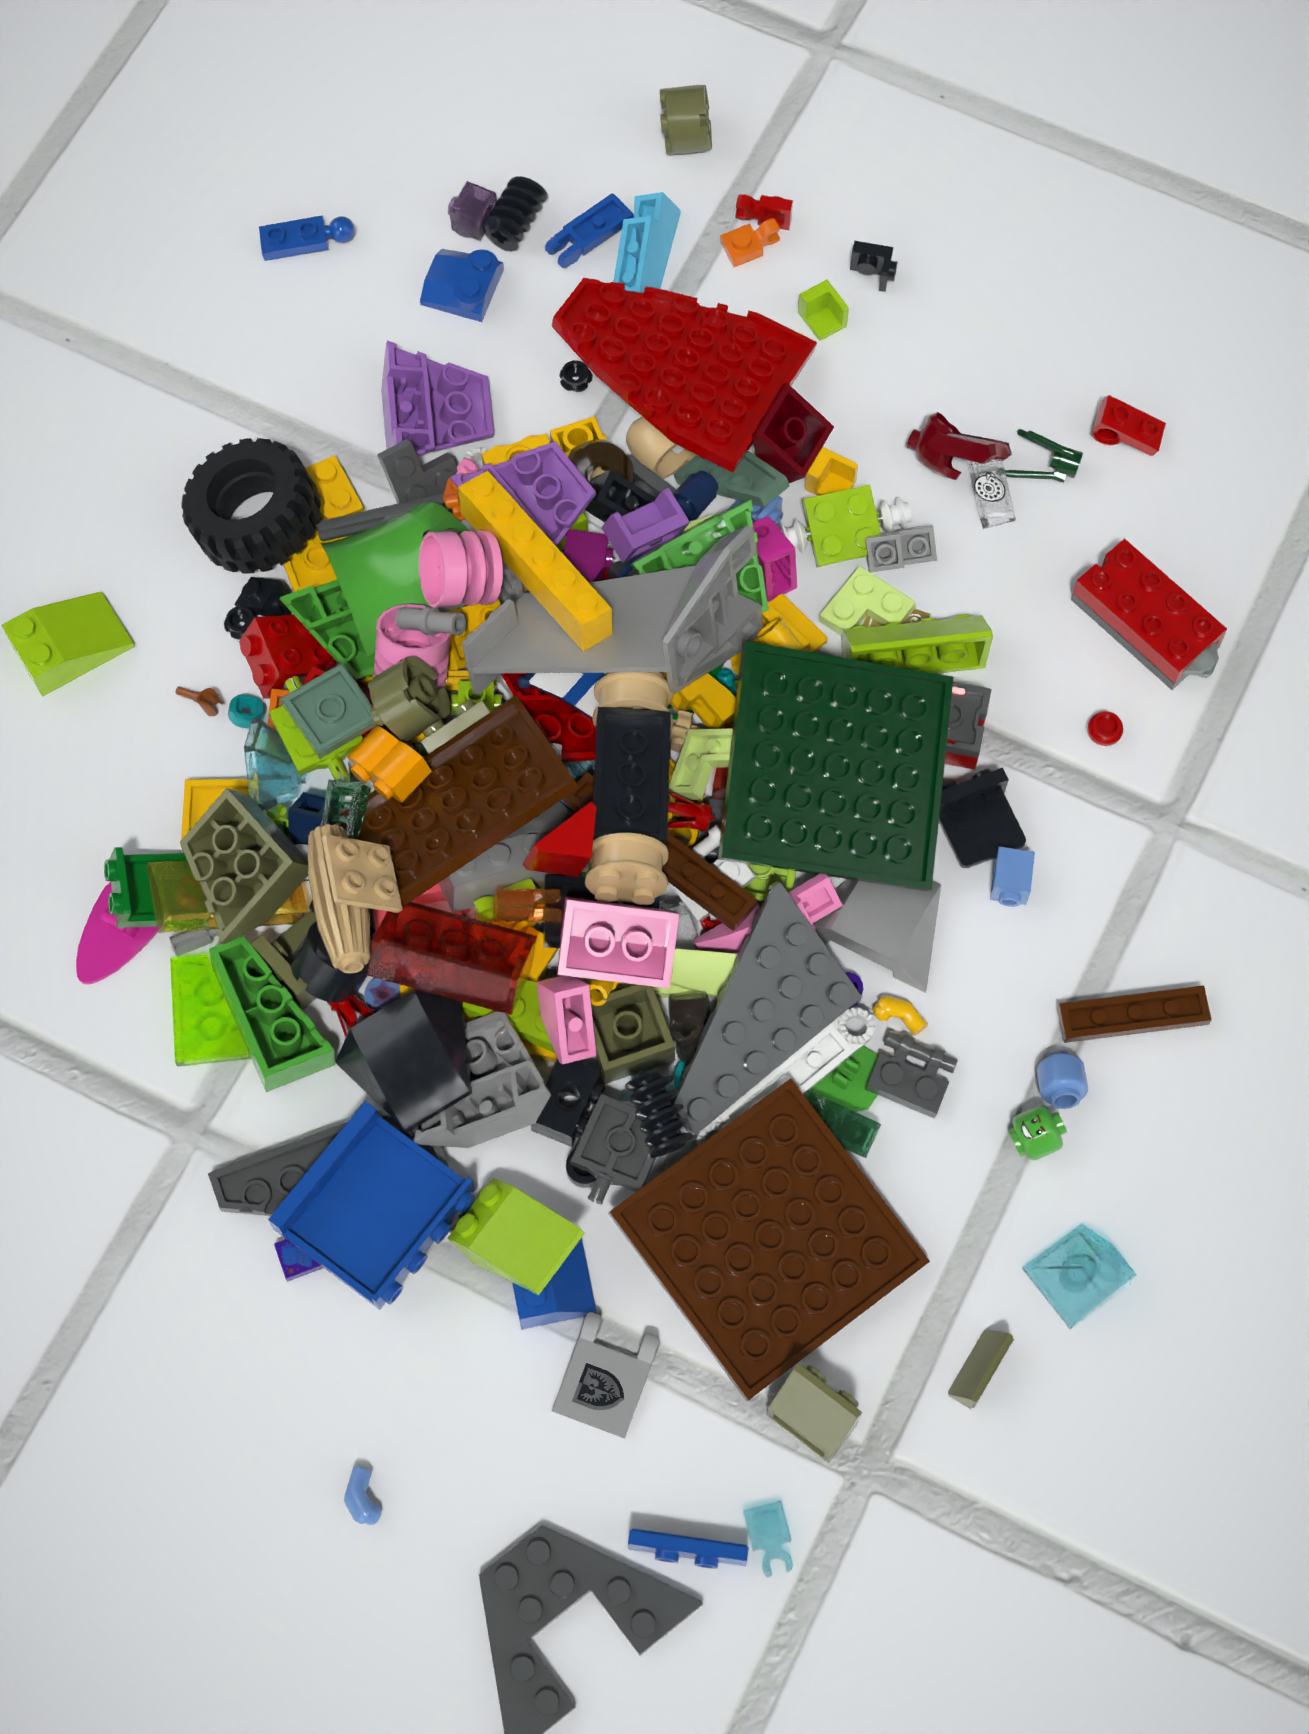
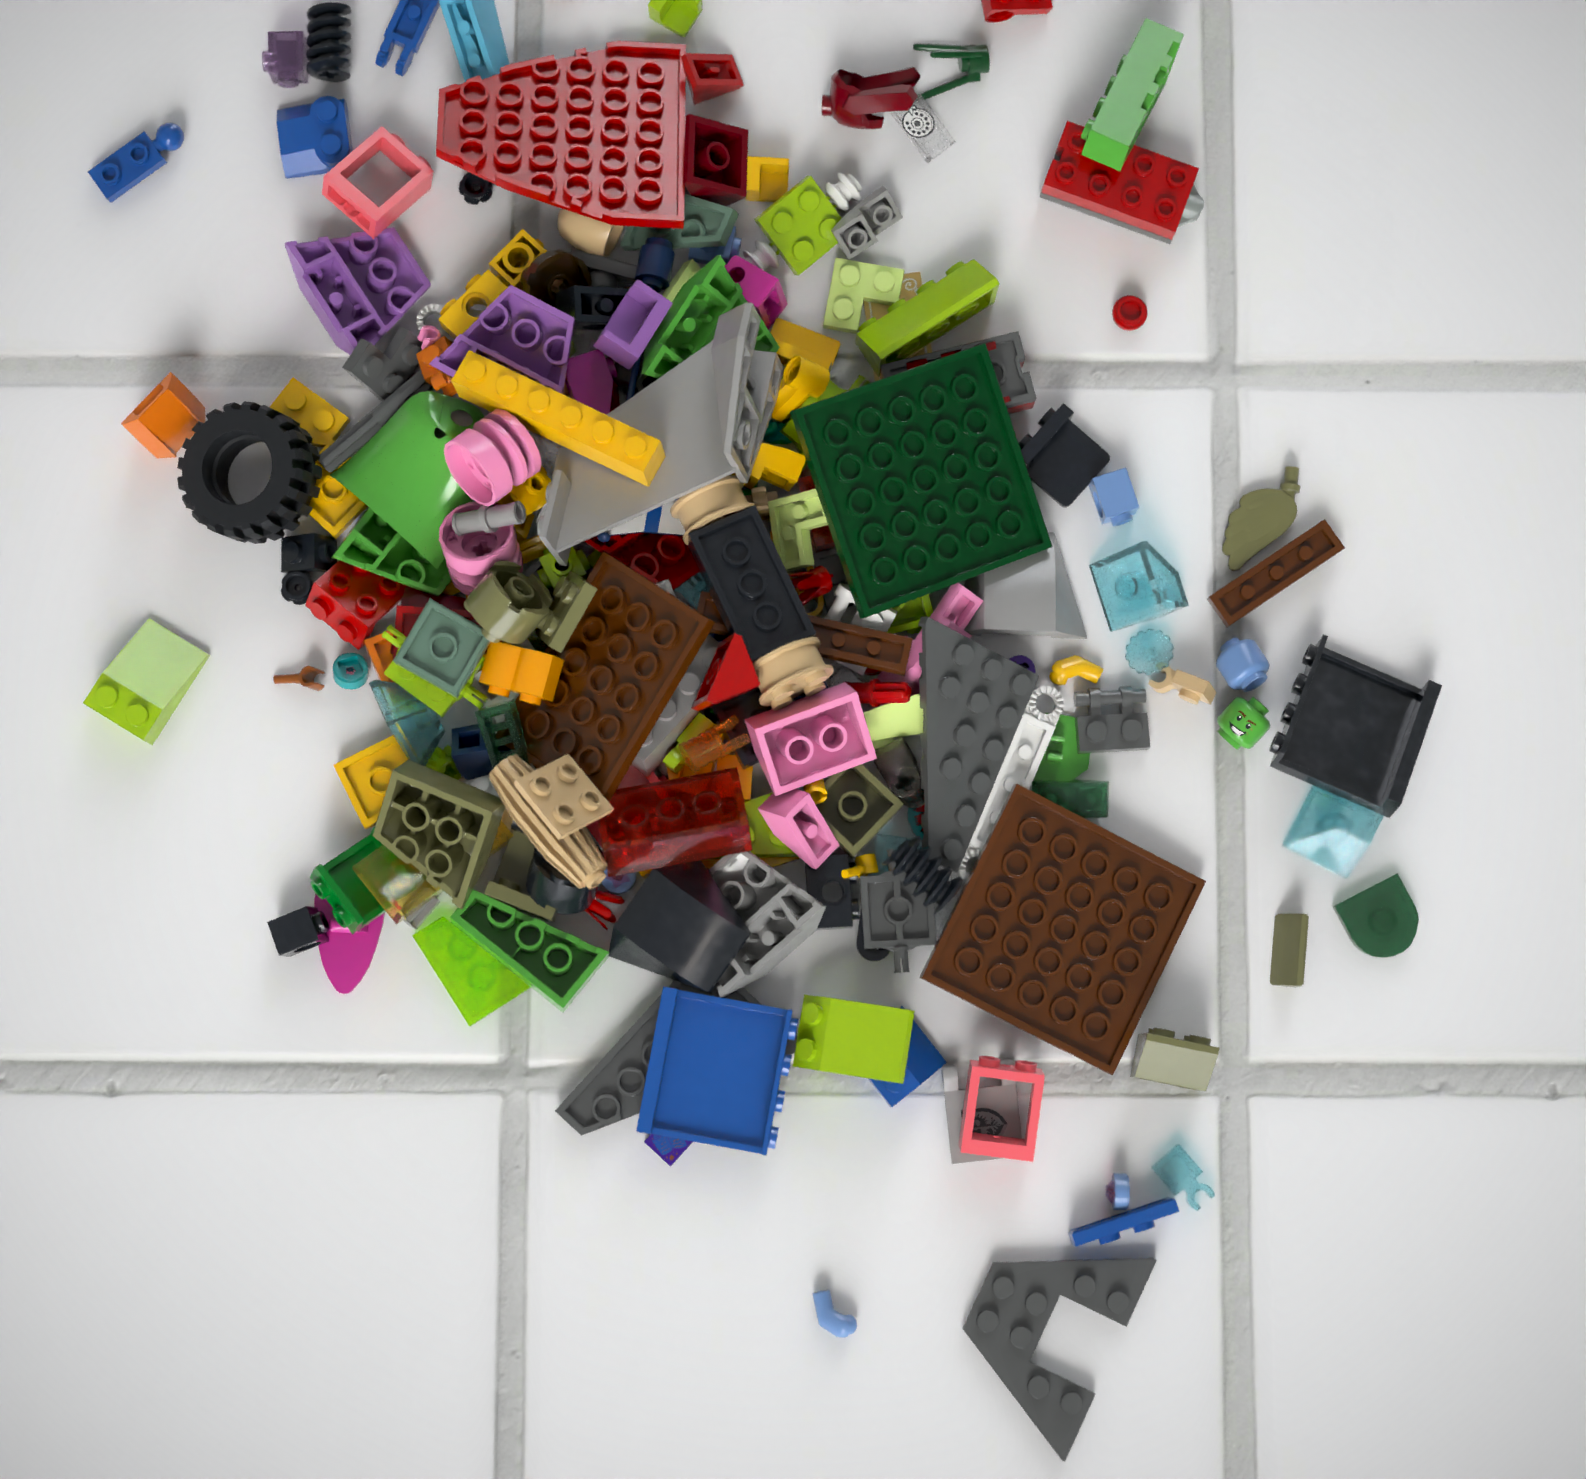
camera: 30 degrees left, 15 degrees up
(72, 905) = (299, 931): none -> black brick
(204, 429) = (165, 418): none -> orange slope
(481, 359) = (356, 204): none -> coral window
(602, 1410) = (993, 1144): none -> coral window
(613, 1088) = (865, 865): none -> yellow hand
(697, 1516) = (1118, 1191): none -> medium blue tile
(702, 937) = (880, 692): none -> red axle
(825, 374) = (710, 75): none -> red slope
(978, 1029) = (1149, 652): none -> clear light blue piece
(996, 964) = (1137, 586): none -> clear light blue slope
(1002, 1075) = (1189, 686): none -> tan plate
(1086, 1382) = (1380, 918): none -> clear green tile
(1139, 1184) = (1353, 729): none -> black panel
(1143, 962) = (1260, 520): none -> olive animal
(1194, 539) = (1131, 95): none -> bright green wedge

